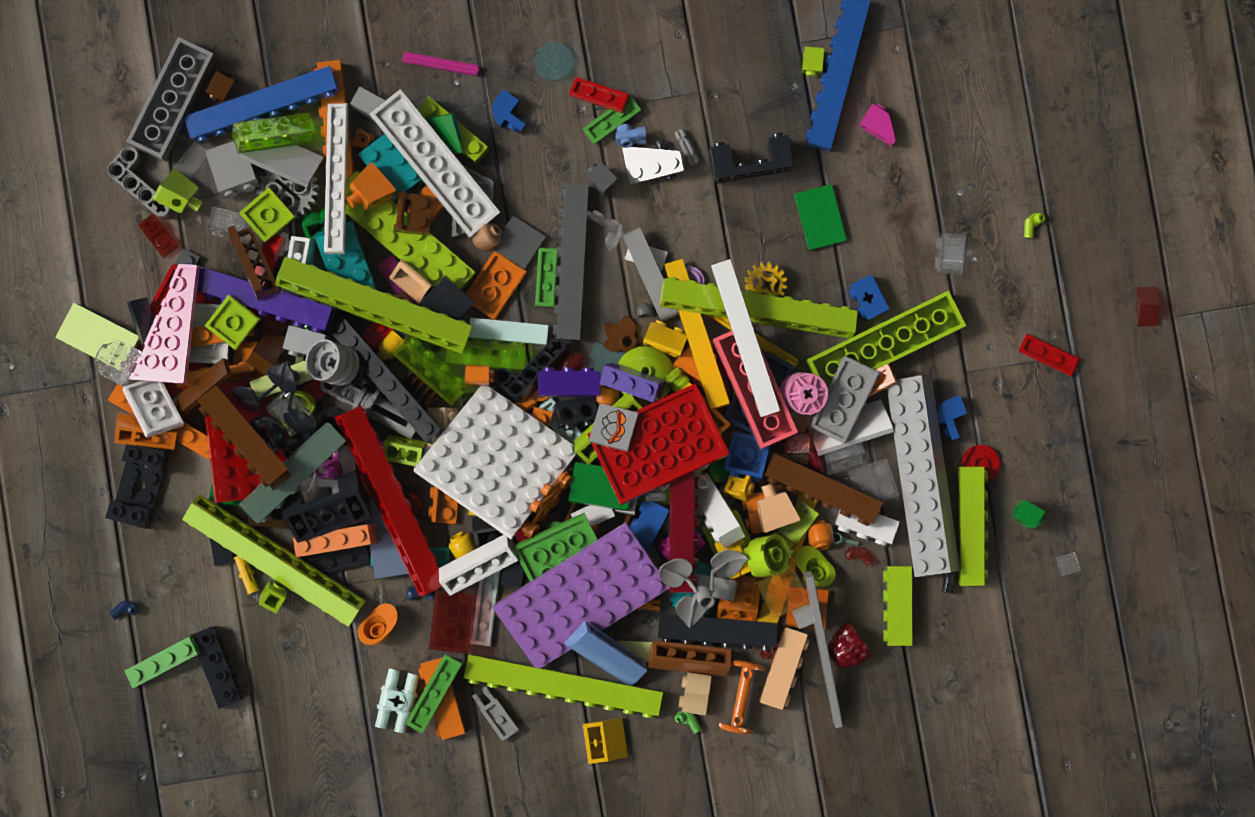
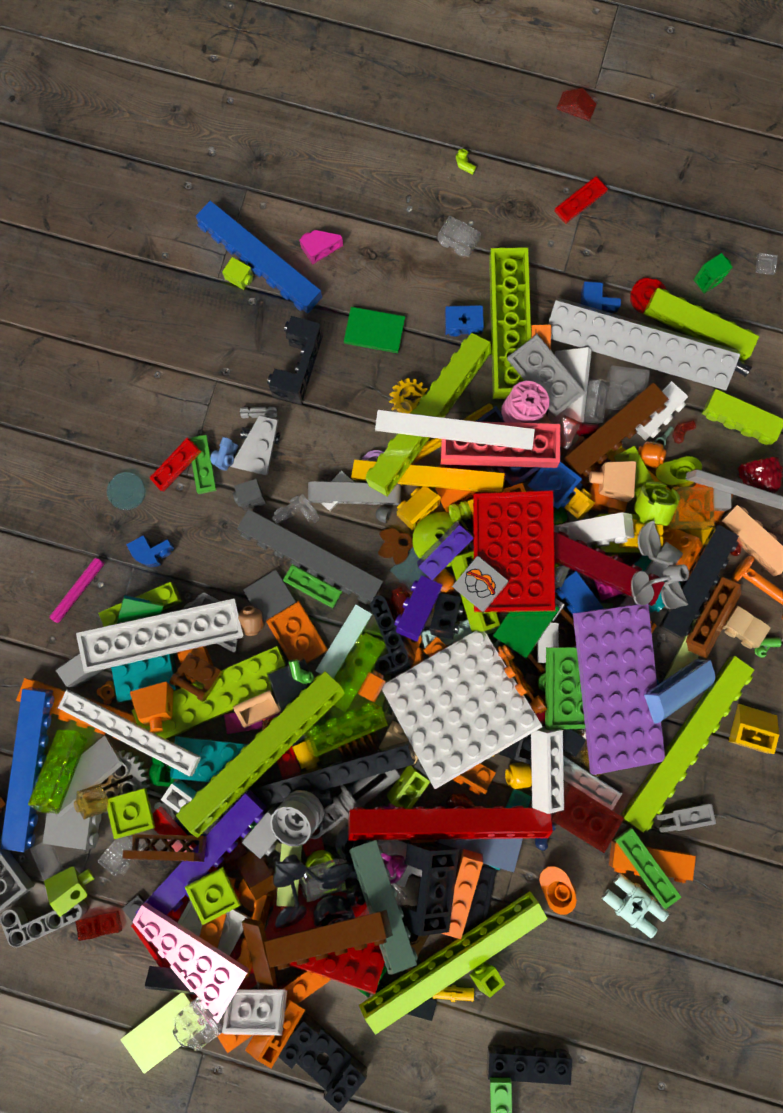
camera: 65 degrees left, 5 degrees down
(261, 176) = (91, 801): none -> clear yellow brick
(458, 304) = (299, 674): none -> bright green arm

